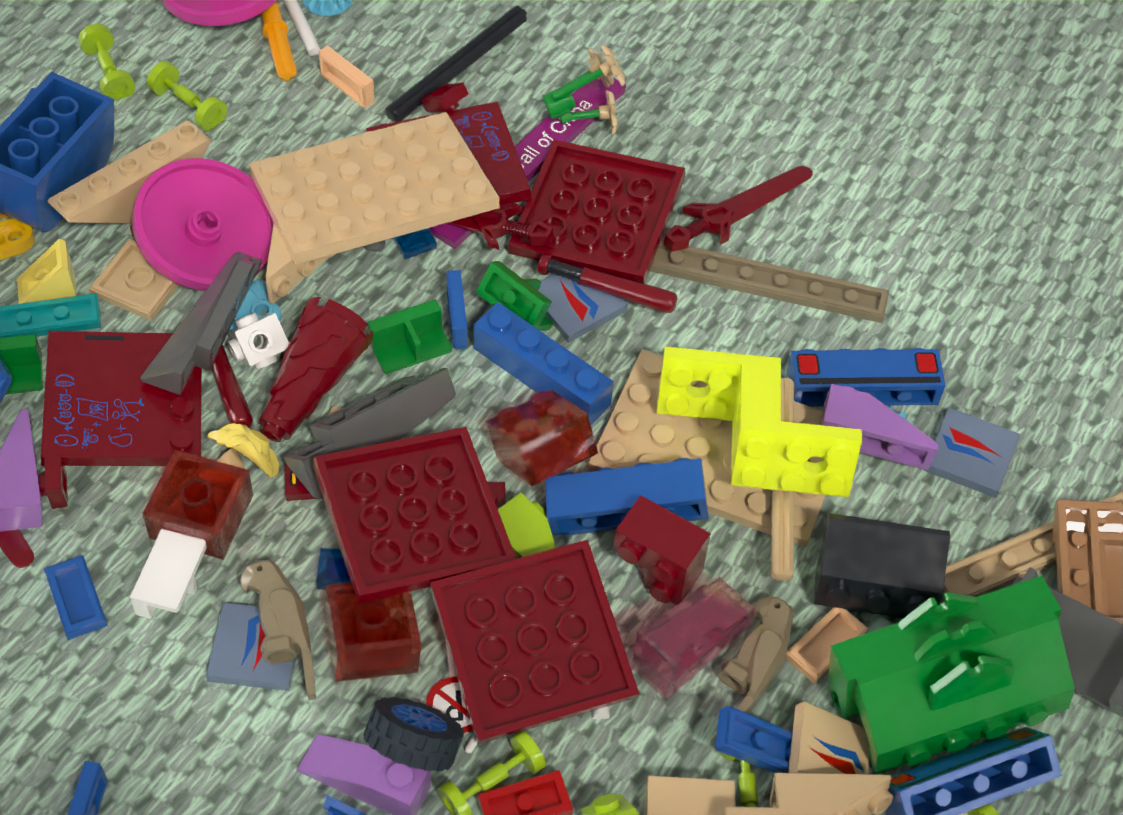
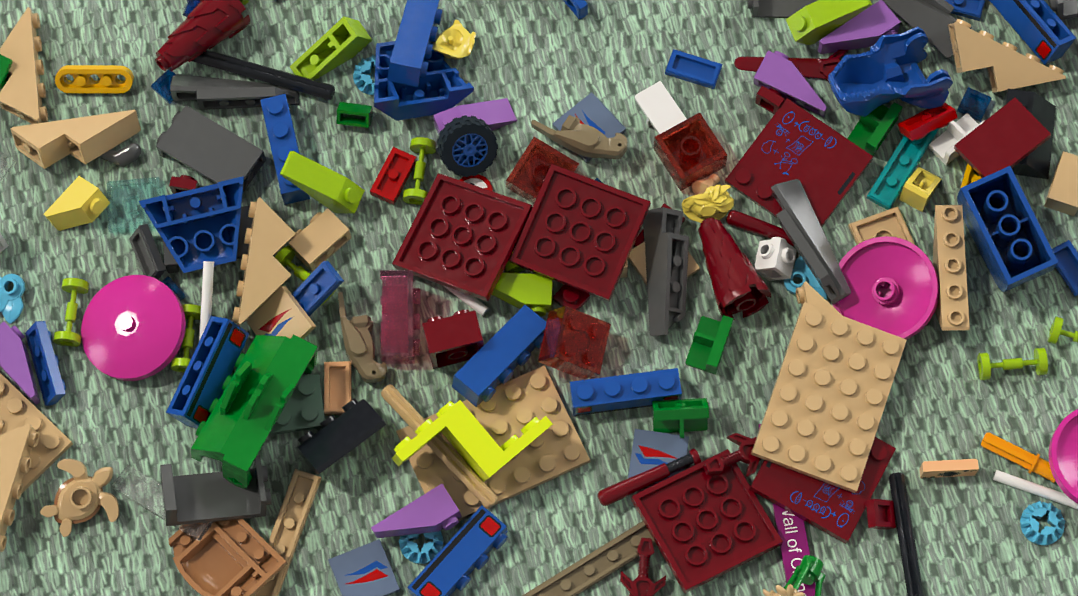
camera: 140 degrees right, 15 degrees up
(456, 309) = (706, 381): blue tile -> none

